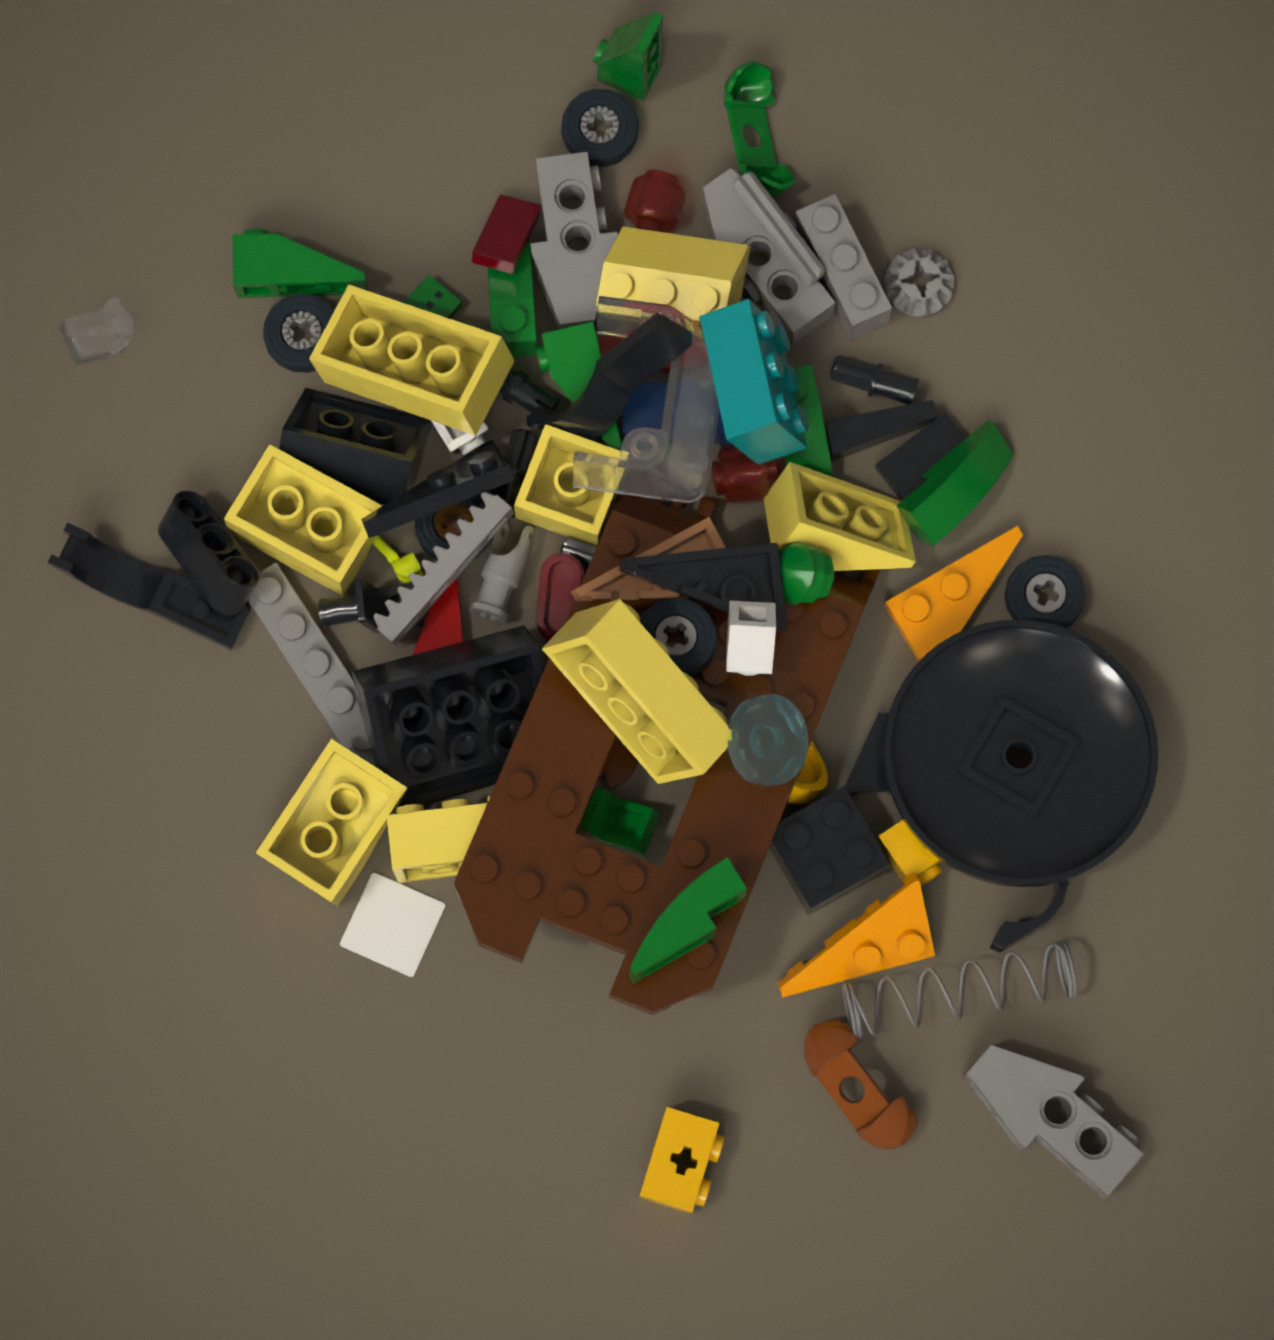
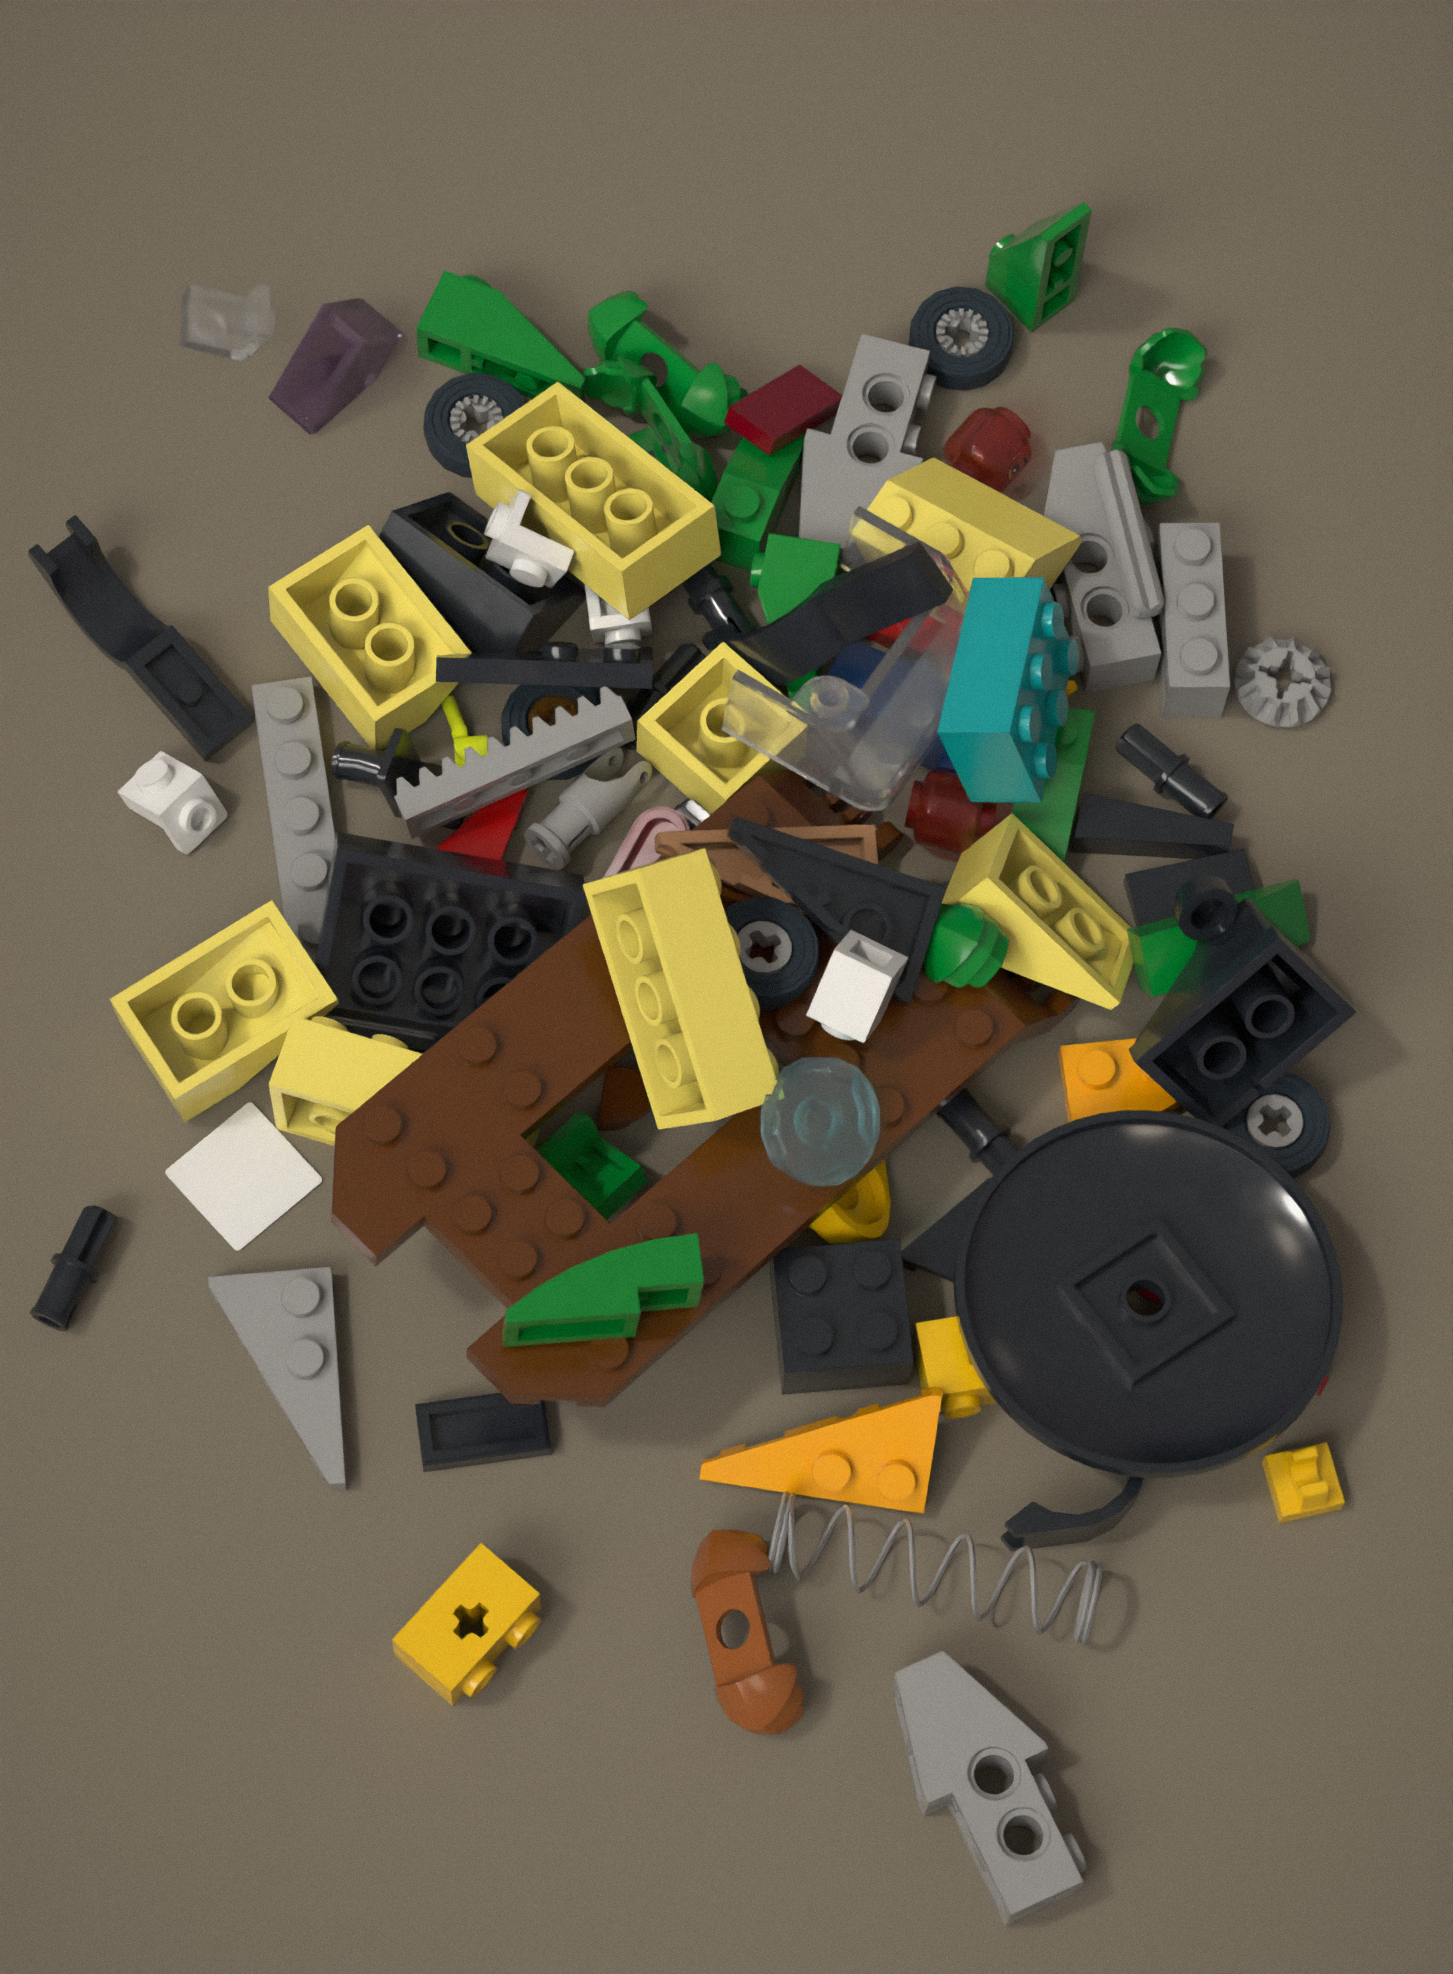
camera: 20 degrees right, 10 degrees down
(186, 331) = (334, 362): none -> slope
(208, 552) = (231, 626): black beam -> none
(225, 689) = (174, 800): none -> white bracket
(314, 1037) = (75, 1268): none -> black axle
(389, 420) = (526, 553): none -> white bracket
(398, 263) = (632, 387): none -> green piece
(440, 254) = (693, 396): none -> green piece
(475, 1019) = (292, 1338): none -> light grey wing
(622, 1031) = (480, 1431): none -> black tile
(865, 687) = (978, 1131): none -> black axle
(995, 532) = (1238, 1008): none -> black piece
(1165, 826) = (1303, 1482): none -> yellow tile

